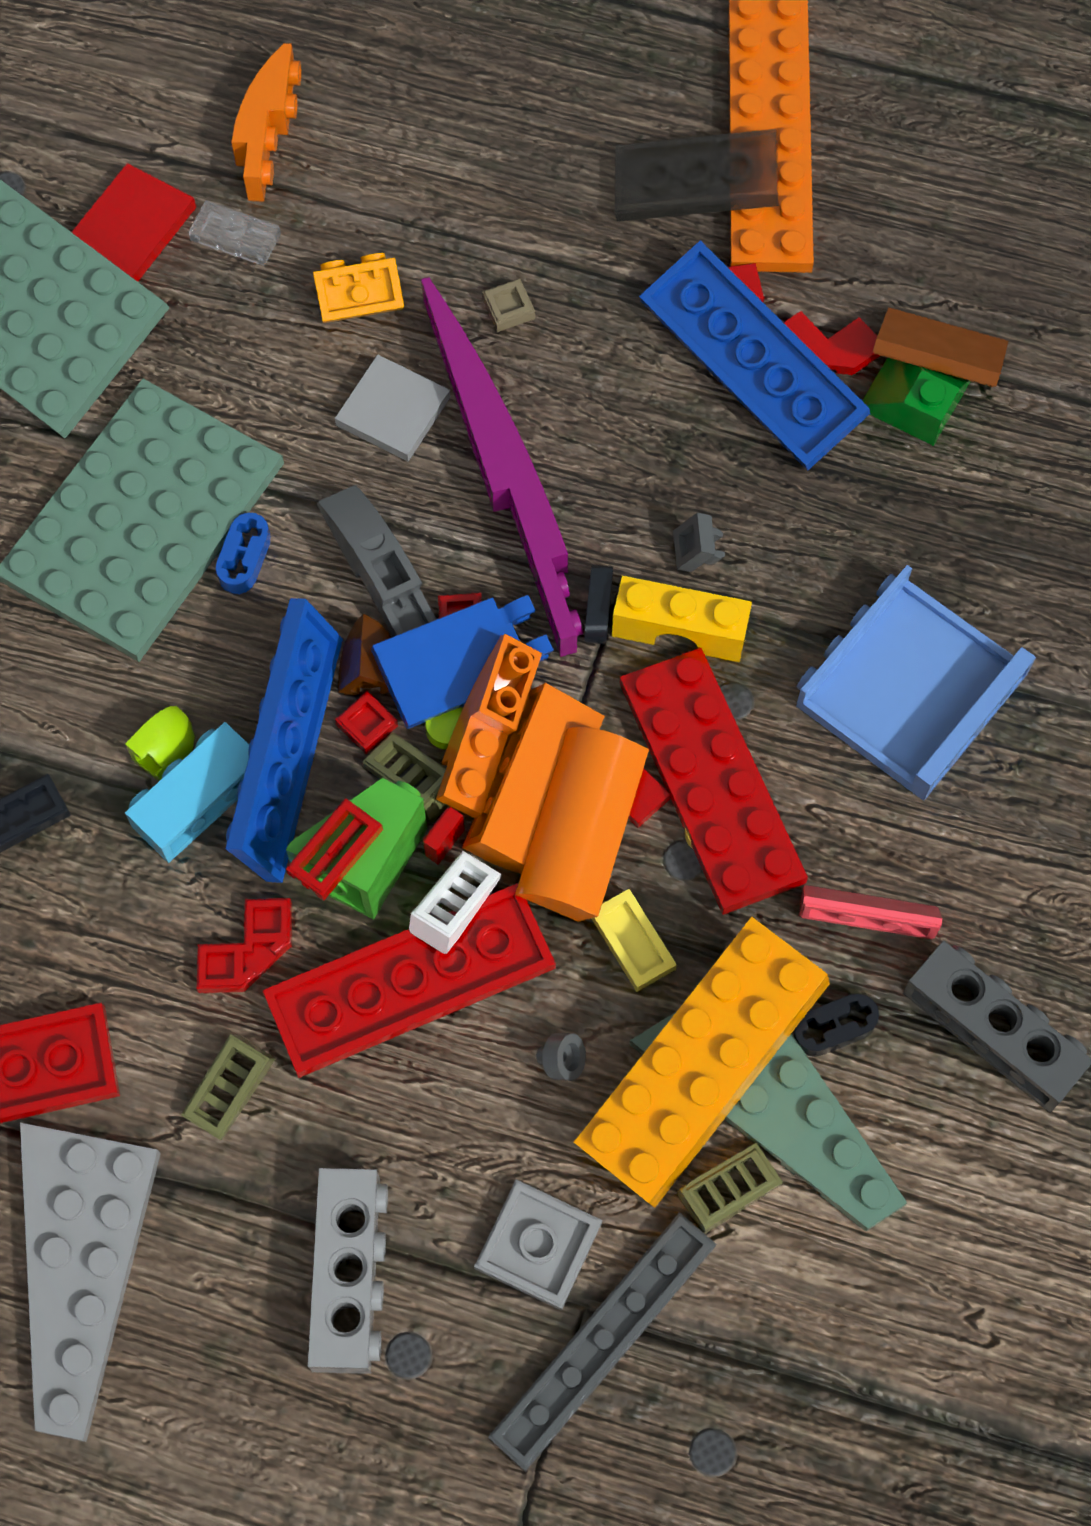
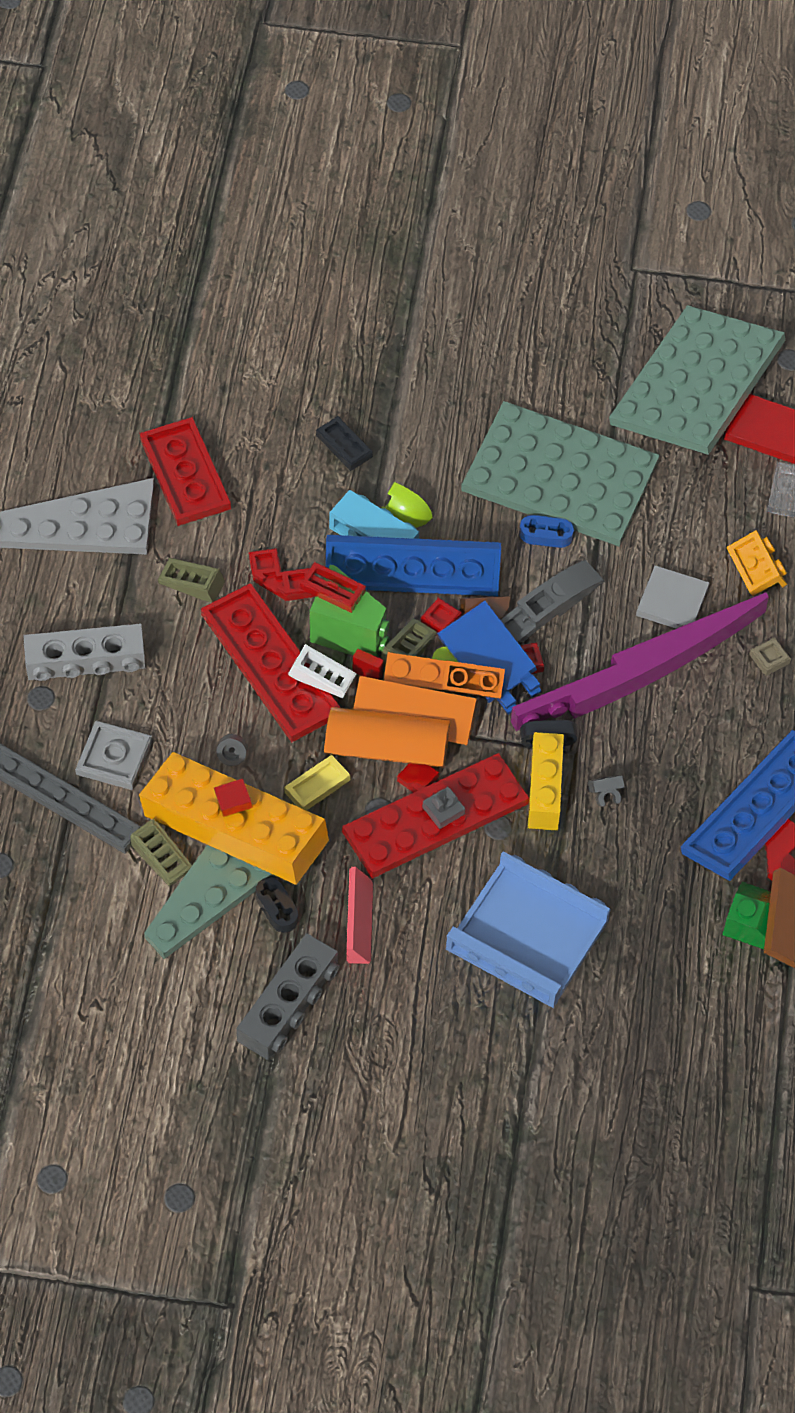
camera: 80 degrees right, 10 degrees down
(698, 1049) = (233, 797): none -> red tile
(717, 759) = (443, 807): none -> dark grey tile

